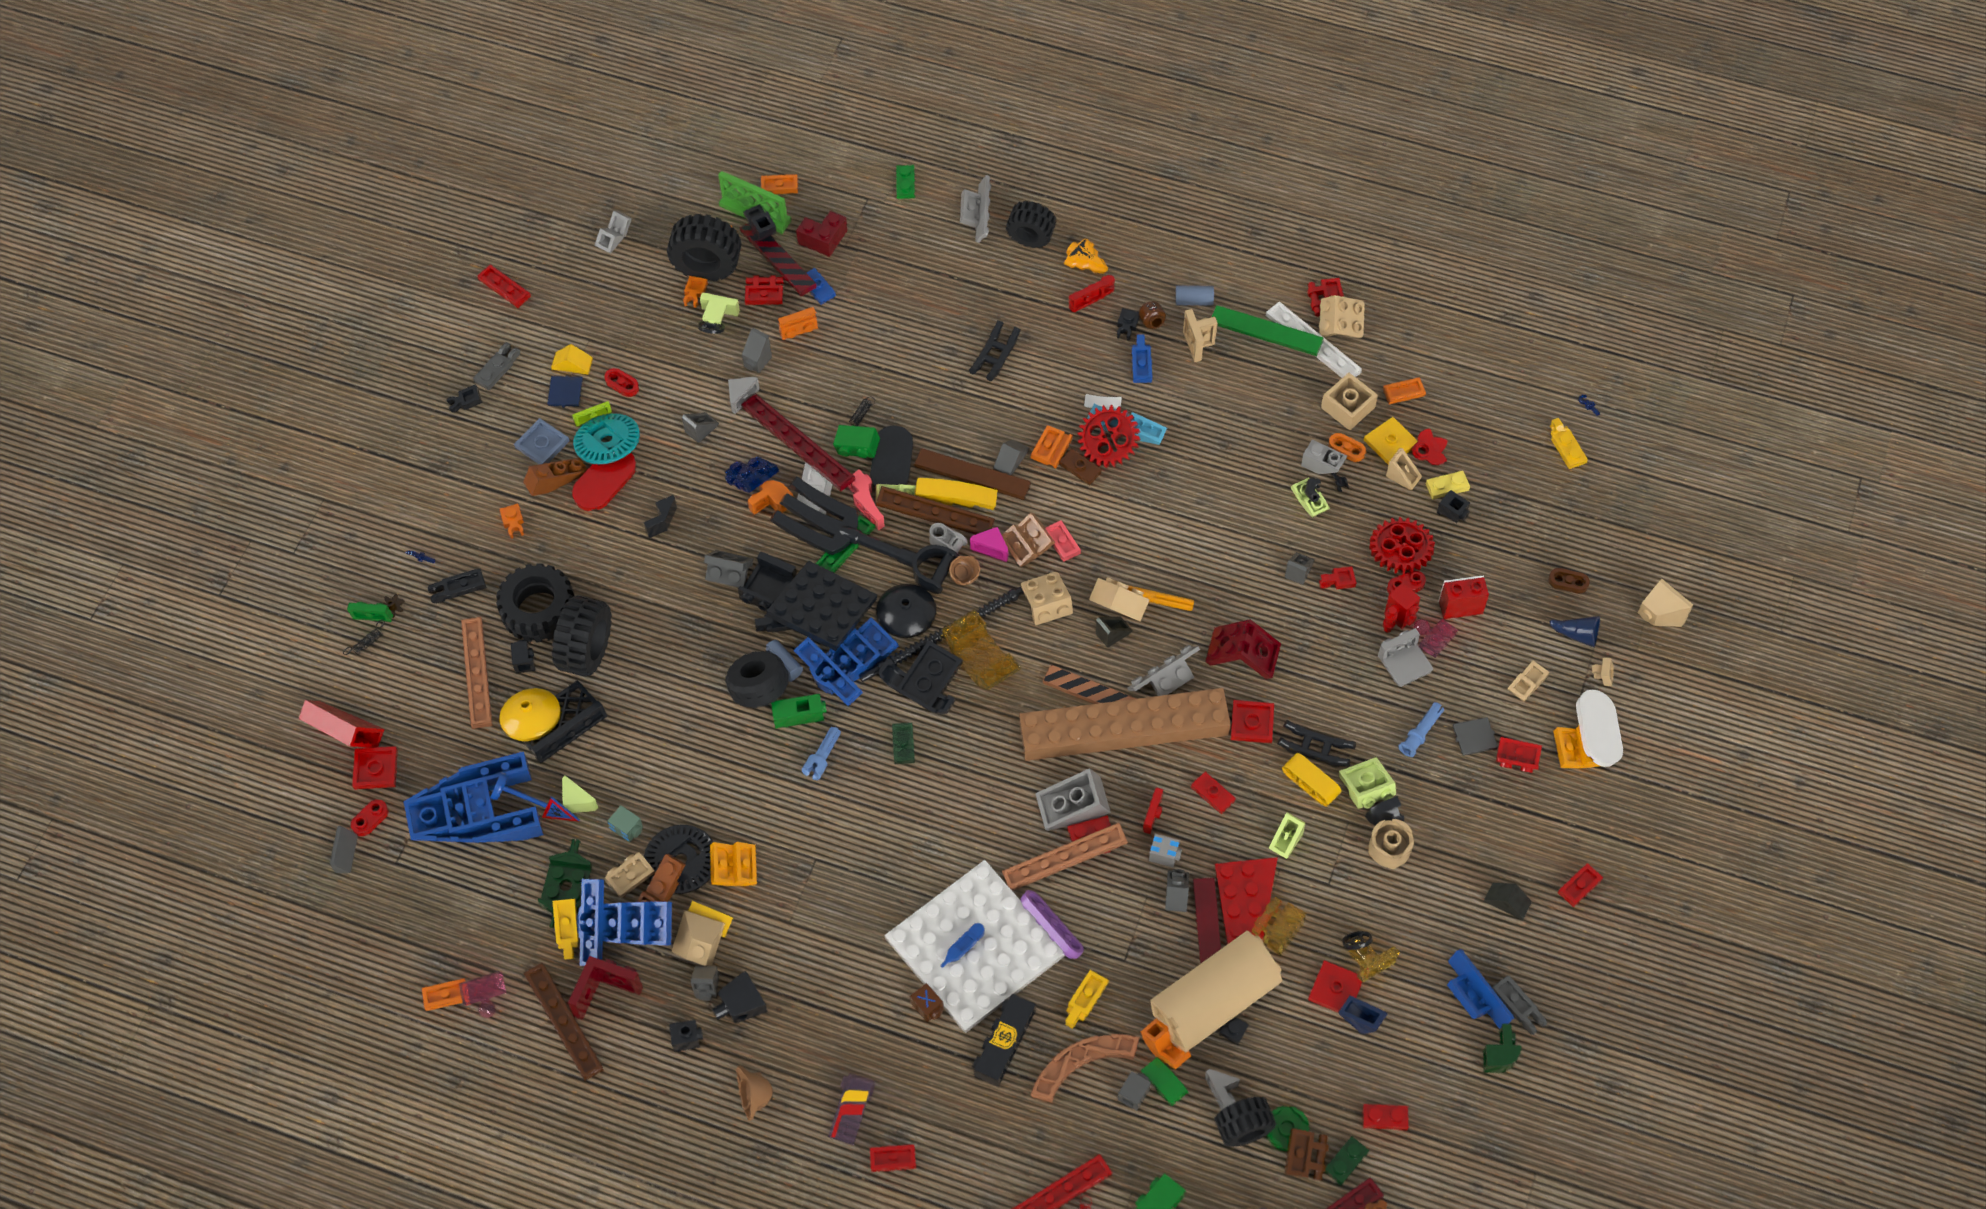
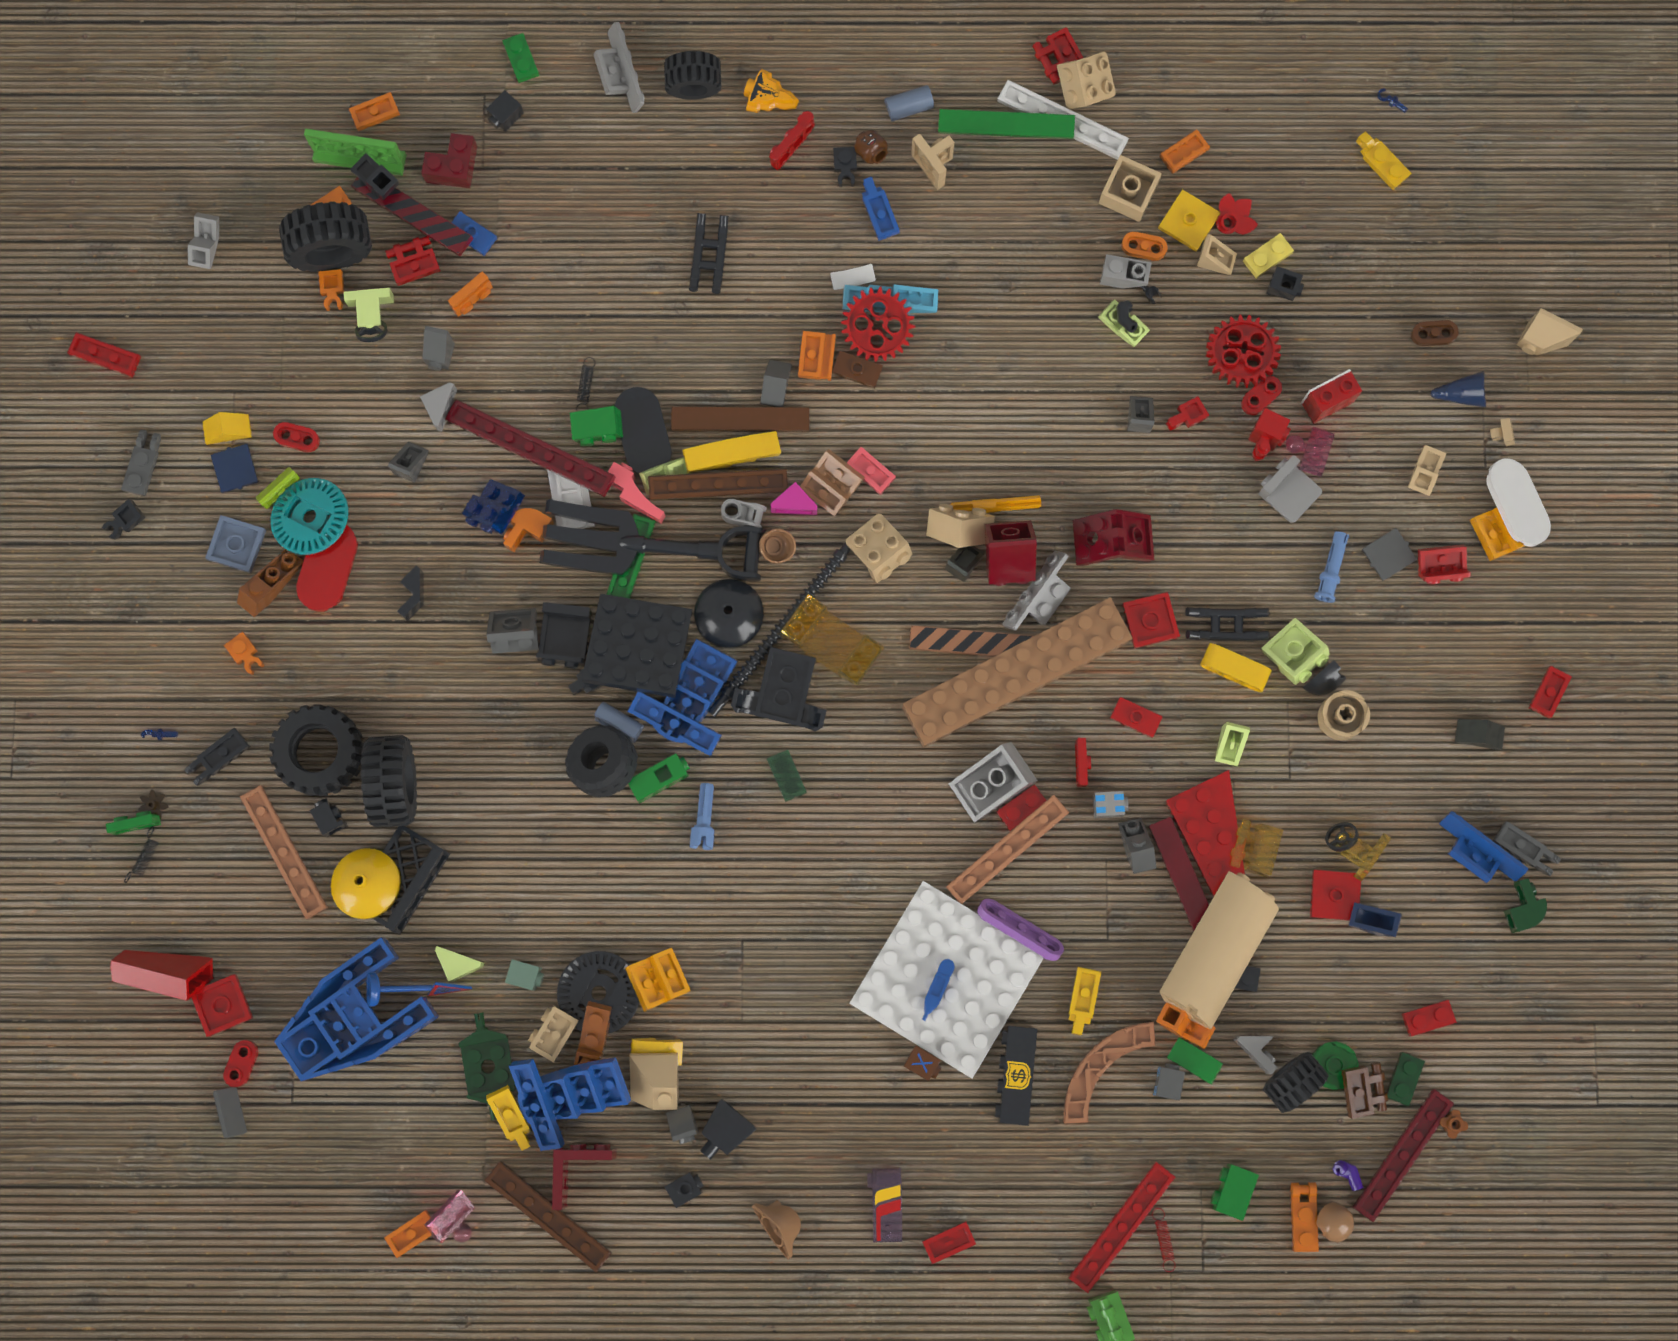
camera: 20 degrees left, 20 degrees up
(877, 211) = (504, 111): none -> black brick
(1151, 630) = (1010, 552): none -> dark red slope

